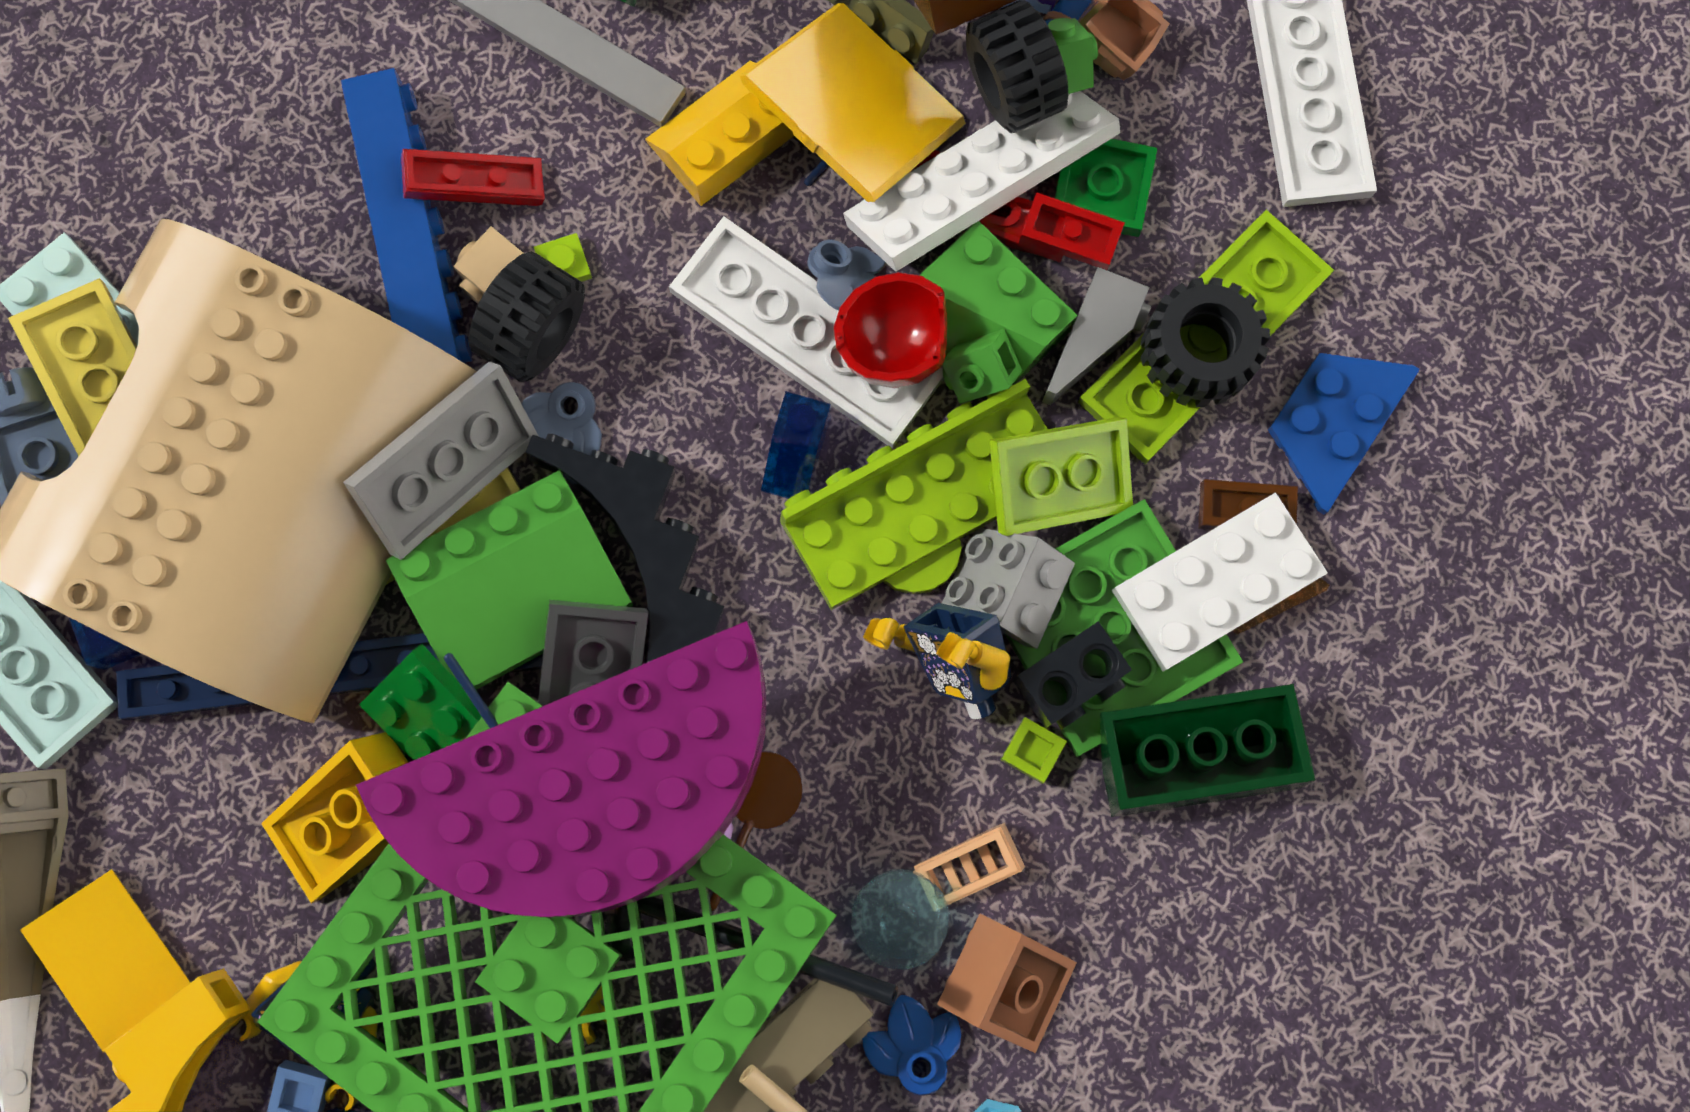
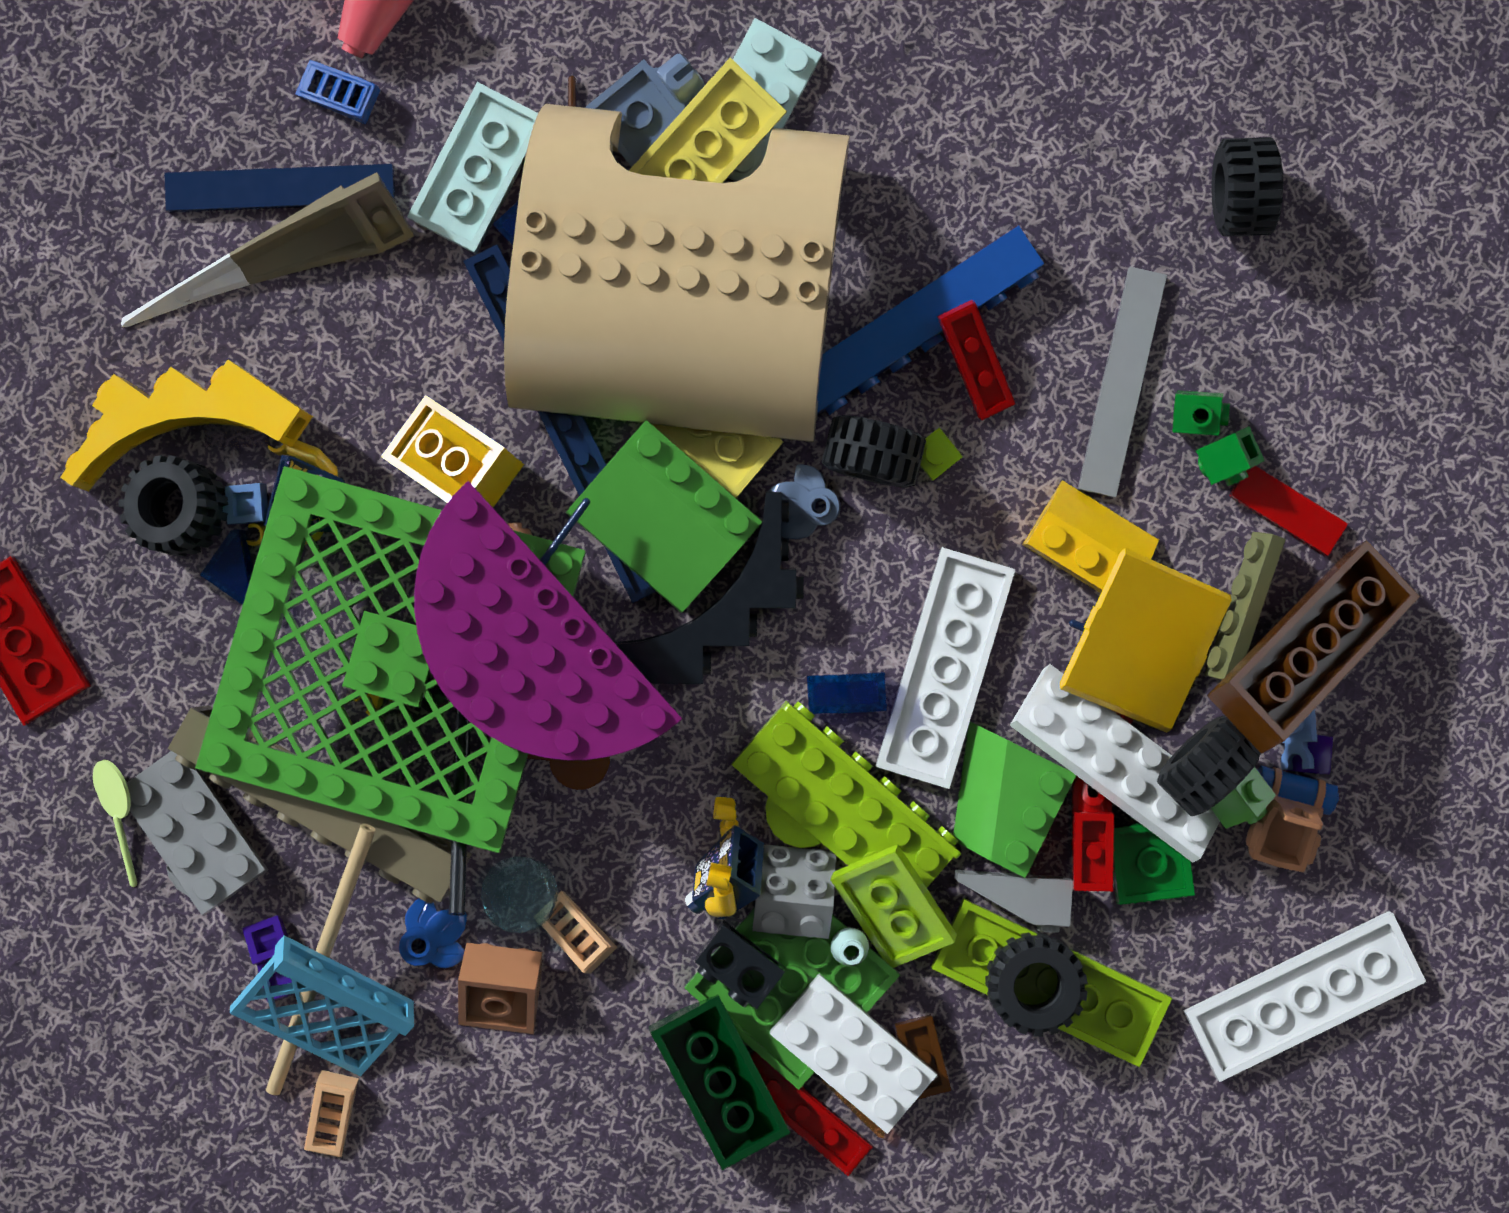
camera: 65 degrees right, 10 degrees up
(106, 958) = (290, 327): yellow tile -> none
(421, 705) = (547, 487): green plate -> none
(442, 460) = (735, 436): light grey plate -> none
(482, 262) = (908, 401): tan brick -> none
(588, 646) = (628, 598): dark grey plate -> none
(841, 269) = (1000, 687): sand blue plate -> none
(893, 330) = (959, 740): red cylinder -> none
(981, 366) = (959, 816): bright green brick -> none
(1033, 750) = (677, 952): lime plate -> none
(1086, 548) = (845, 938): none -> light aqua cone
(1289, 655) = (814, 1120): none -> red tile
(1336, 419) = (1019, 1104): blue wing -> none

